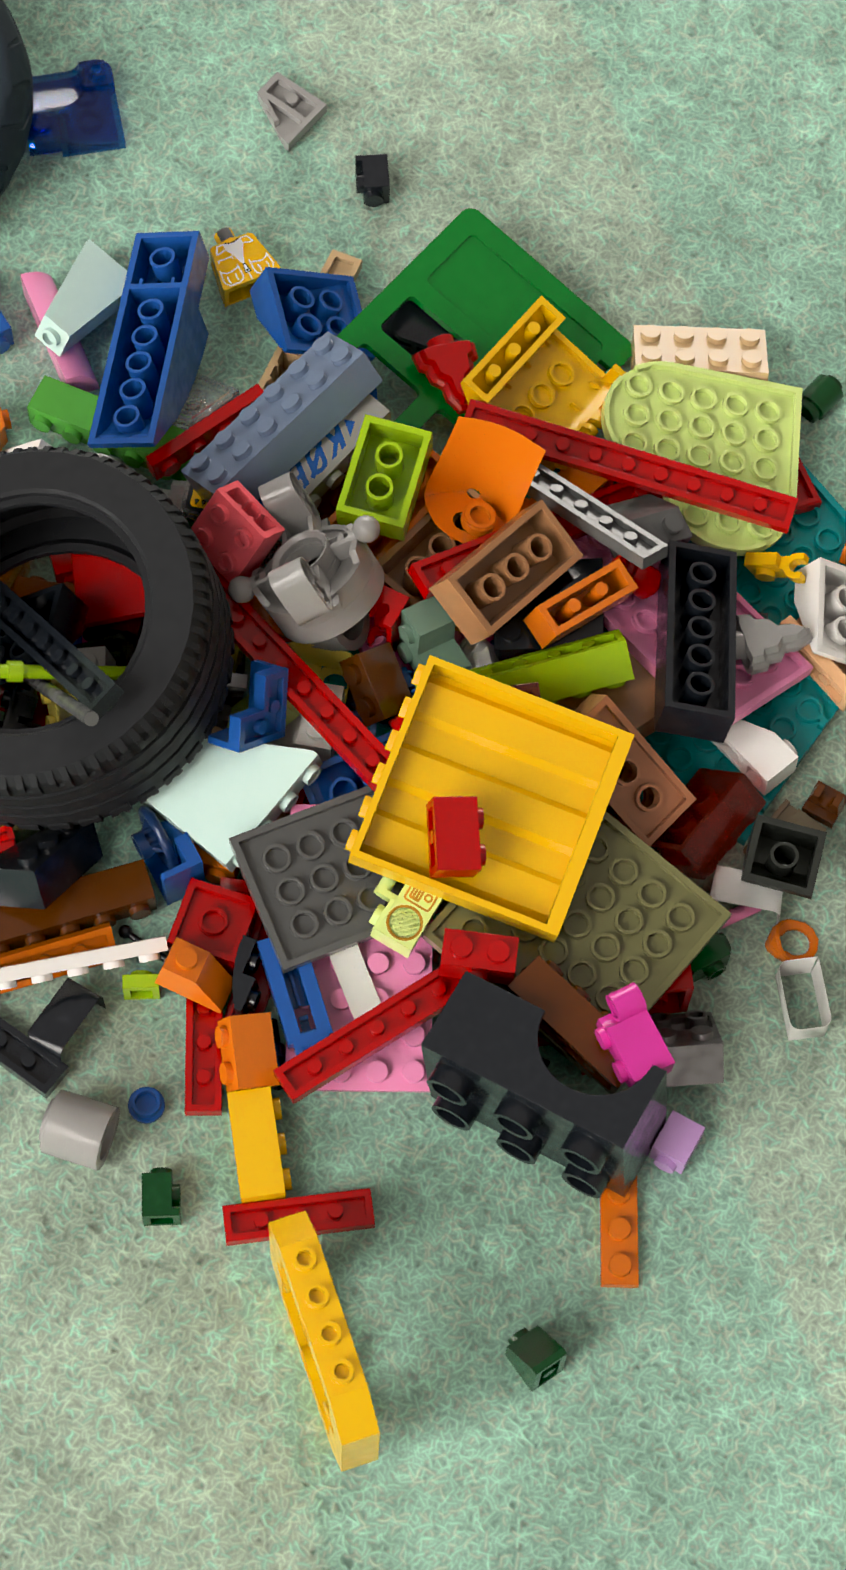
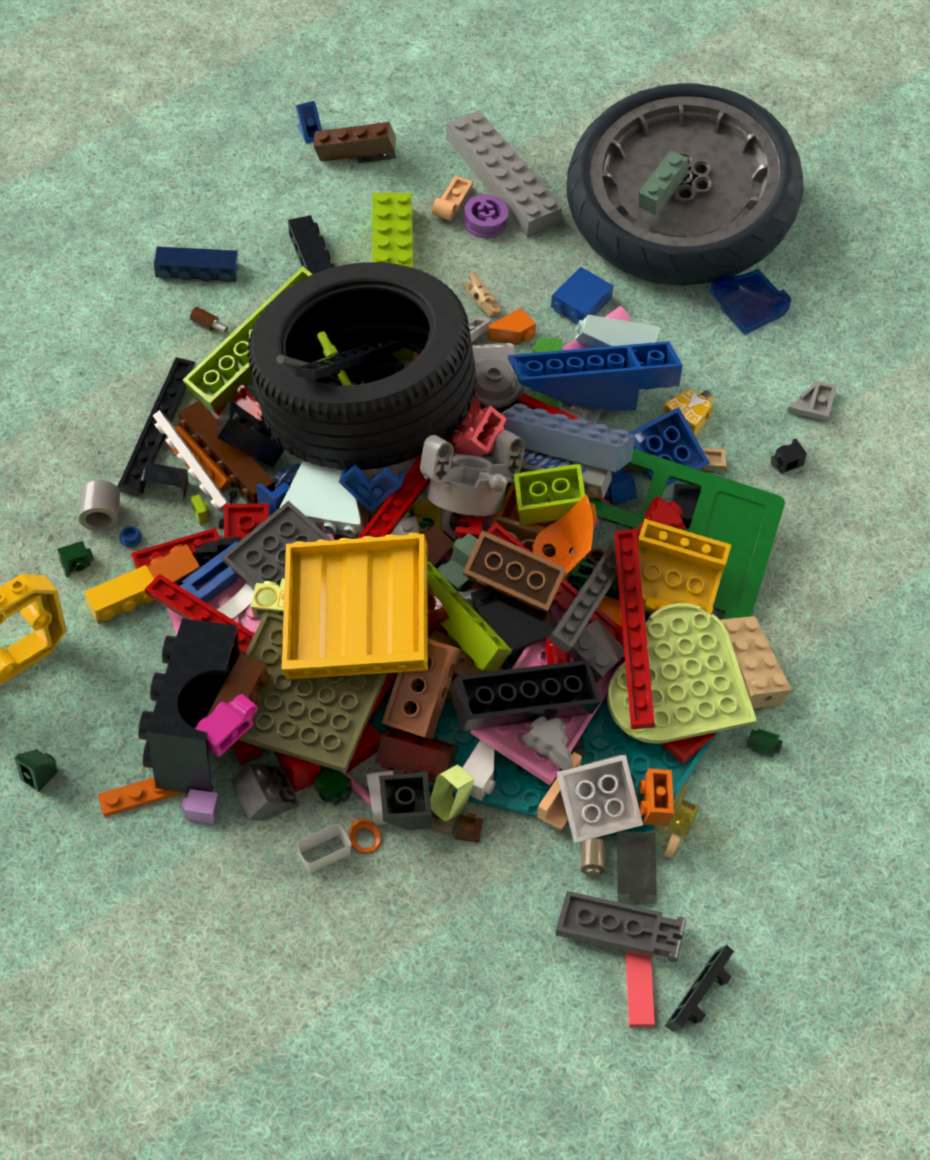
camera: 70 degrees right, 10 degrees down
(195, 975) = (209, 521): orange slope -> none
(326, 1211) = (87, 628): red plate -> none
(455, 836) = (314, 586): red brick -> none
(478, 518) = (553, 553): orange tile -> none
(482, 954) = (255, 636): red brick -> none
(580, 603) = (514, 619): orange brick -> none
(771, 565) = (613, 739): yellow plate -> none
(786, 776) = (442, 799): none -> yellowish green piece

